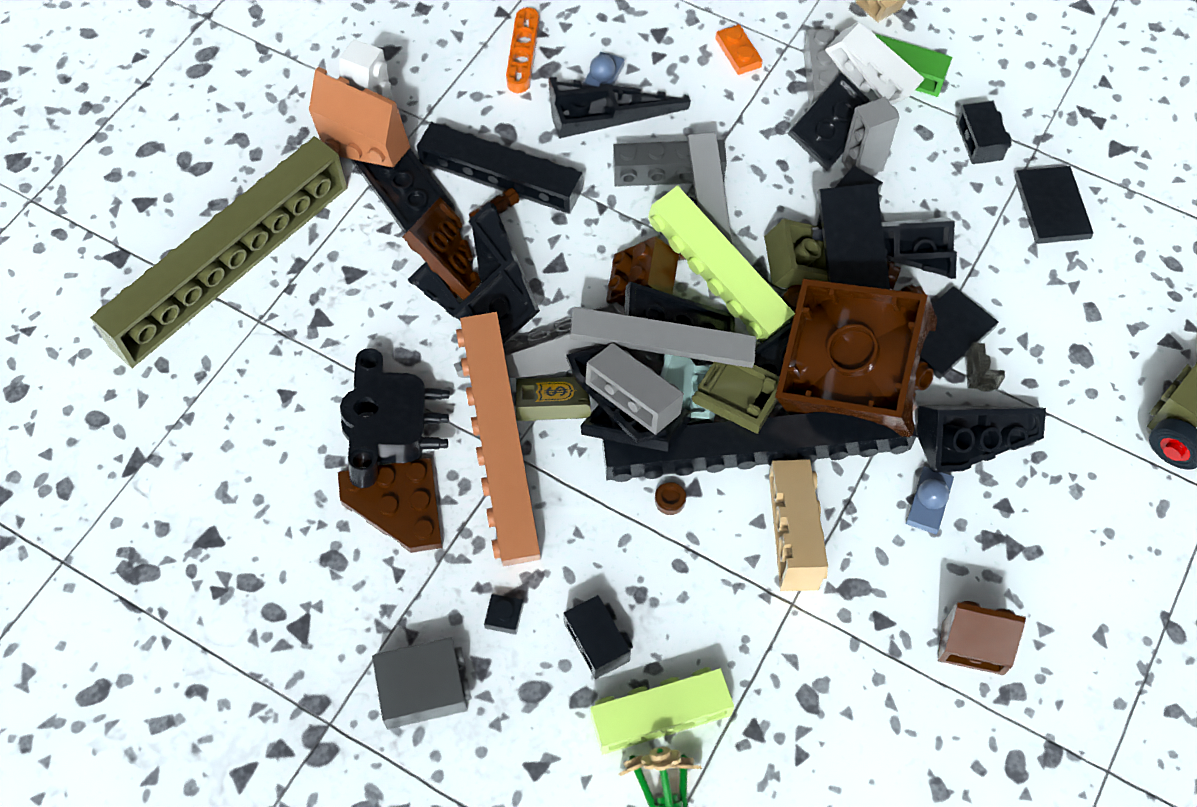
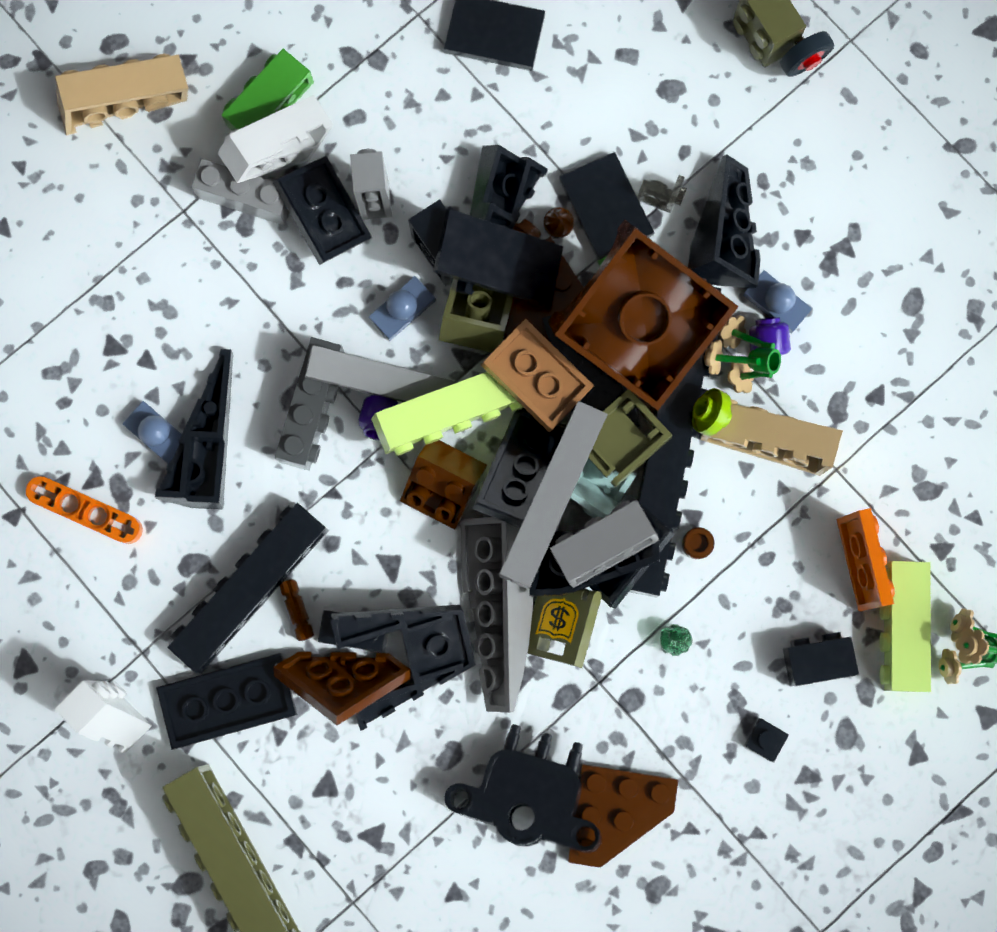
camera: 70 degrees left, 20 degrees up
(356, 121) = (154, 734): nougat wedge -> none
(420, 683) = (815, 838): dark grey brick -> none
(500, 440) = (597, 691): nougat brick -> none
(572, 502) = (675, 640): none -> clear green plate
(712, 642) = (865, 560): none -> orange plate
(738, 49) = (172, 268): orange plate -> none
(765, 302) = (537, 375): none -> medium nougat plate
(779, 204) = (402, 308): none -> sand blue tile
(795, 452) = (711, 412): none -> lime plate
(864, 483) = (763, 360): none -> plant
(889, 498) = (772, 331): none -> dark purple head
(980, 637) = (932, 321): slope -> none
(983, 132) = (385, 59): black brick -> none

